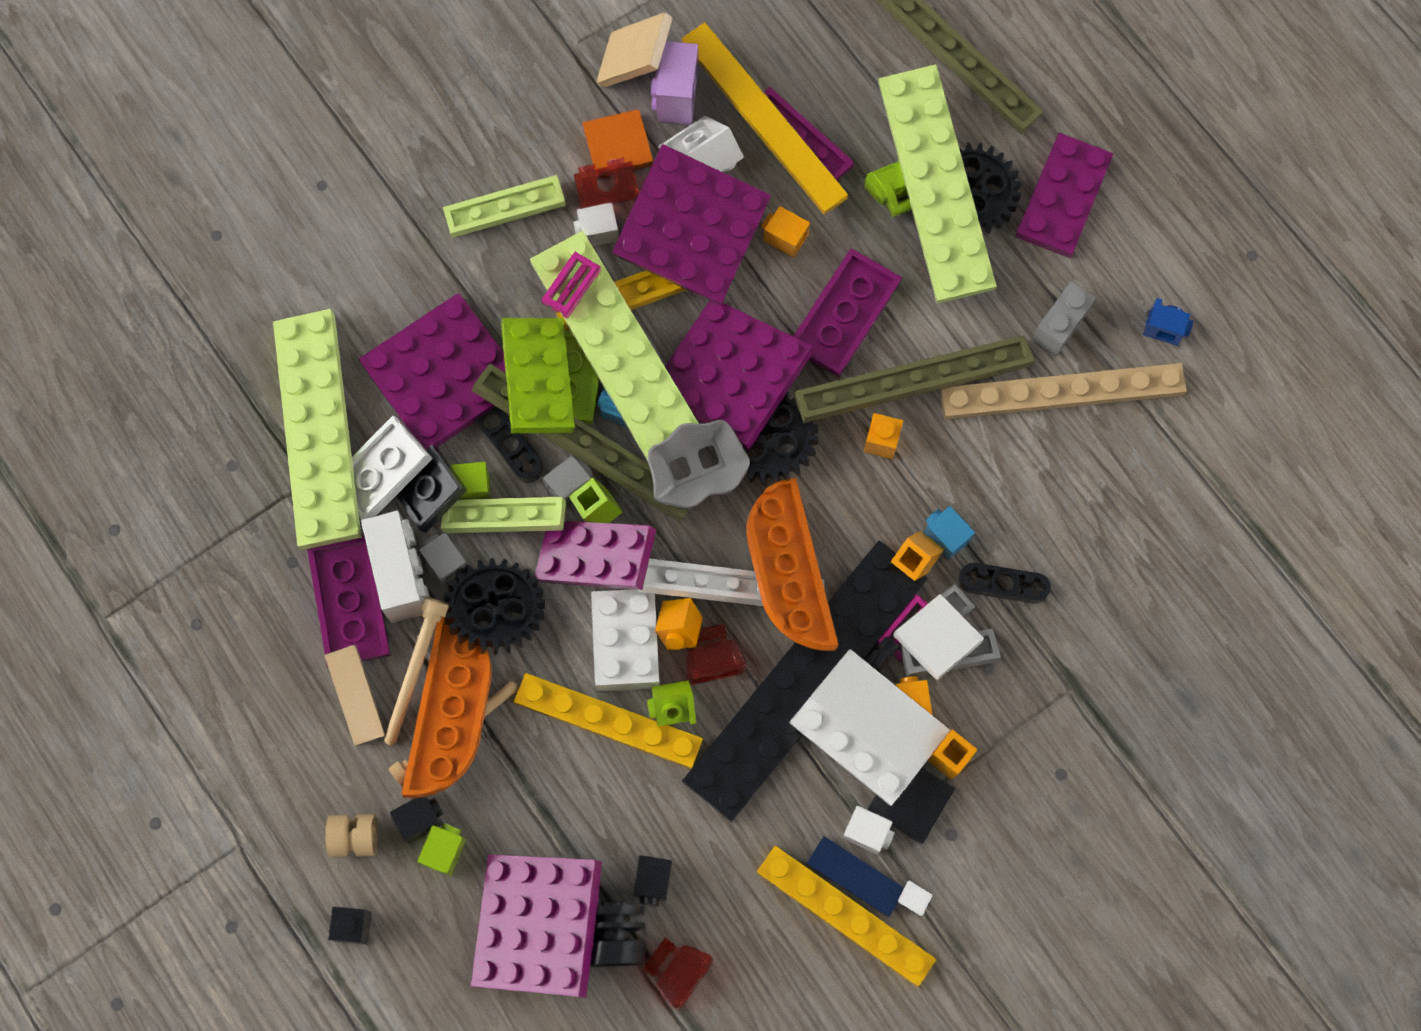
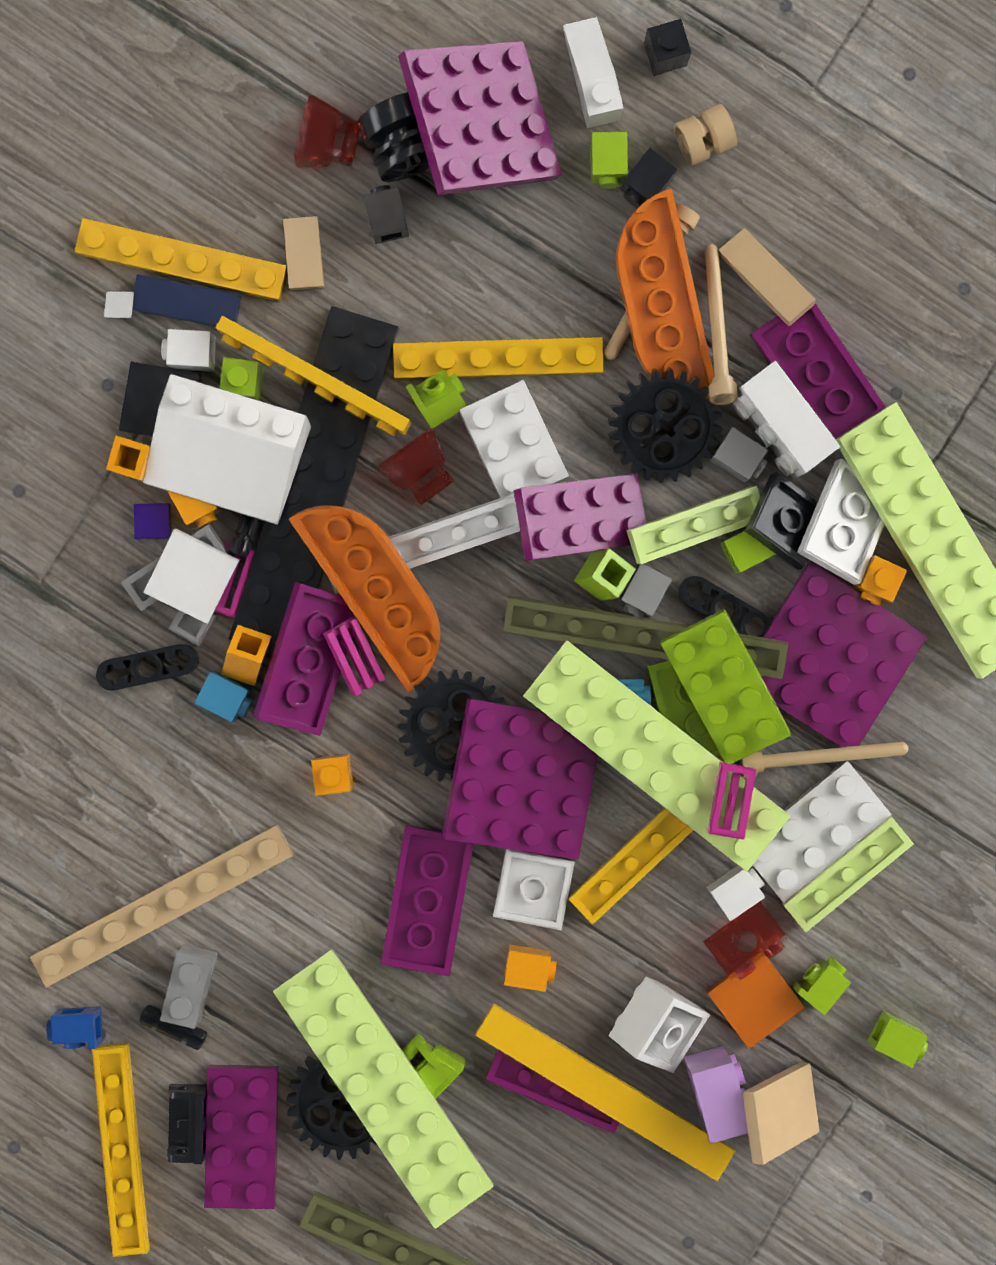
camera: 155 degrees right, 15 degrees up
(375, 411) = (880, 581): none -> light orange brick
(422, 934) = (593, 73): none -> white slope
(482, 300) = (761, 762): none -> tan piece
(504, 249) = (820, 830): none -> white plate
(521, 72) = (898, 1039): none -> lime brick
(560, 132) = (823, 984): none -> lime brick
(678, 624) = (464, 480): light orange brick -> none
(691, 224) = (632, 928): magenta plate -> none
(701, 482) = (503, 644): light grey piece -> none
(737, 878) = (303, 253): none -> tan tile
(759, 288) = (533, 888): none -> white tile
(779, 768) = (299, 370): none -> yellow plate
(825, 500) = (366, 651): none -> dark pink tile
(833, 786) = (242, 377): none -> lime brick
(869, 532) = (302, 665): none -> magenta plate
(913, 378) = (323, 850): olive plate -> none
(955, 701) = (152, 521): none -> dark purple tile
(1103, 309) = (194, 1037): none -> black axle
(1104, 219) = (187, 1123): none -> black hinge
(1165, 221) = (120, 1149): none -> yellow tile

